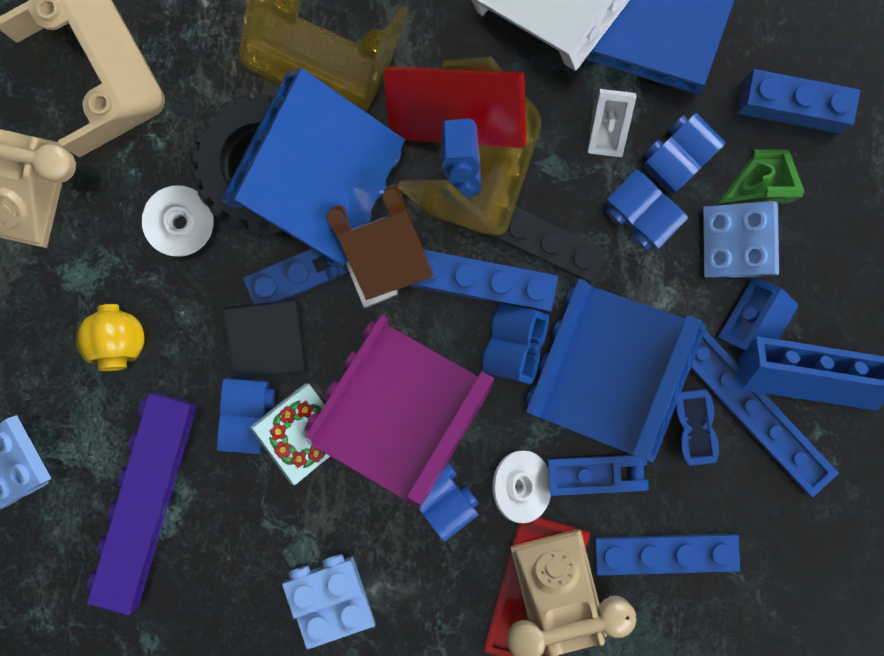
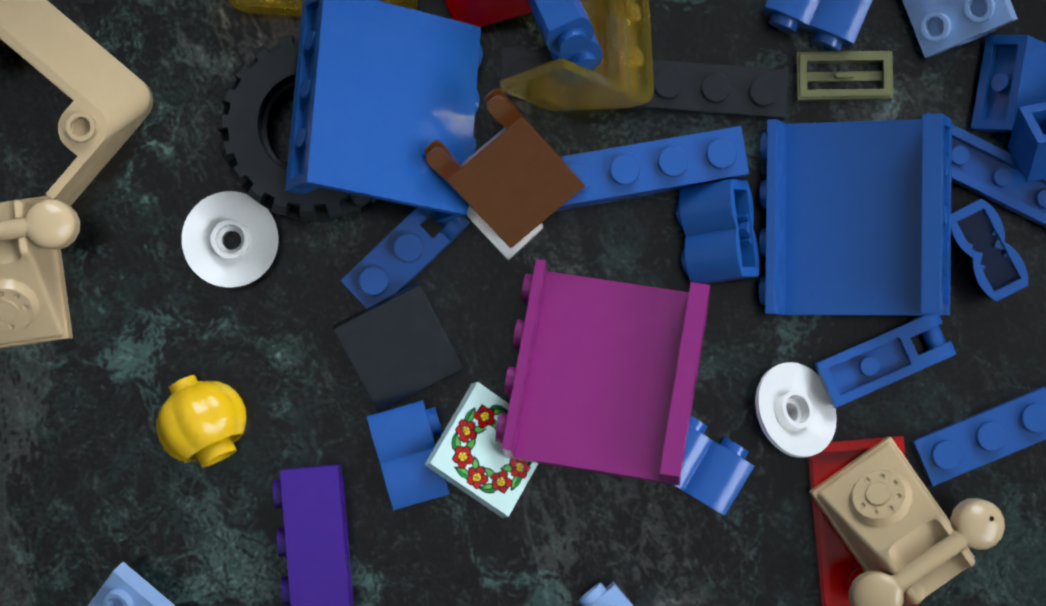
camera: 20 degrees left, 0 degrees up
(615, 258) = (803, 77): none -> olive tile

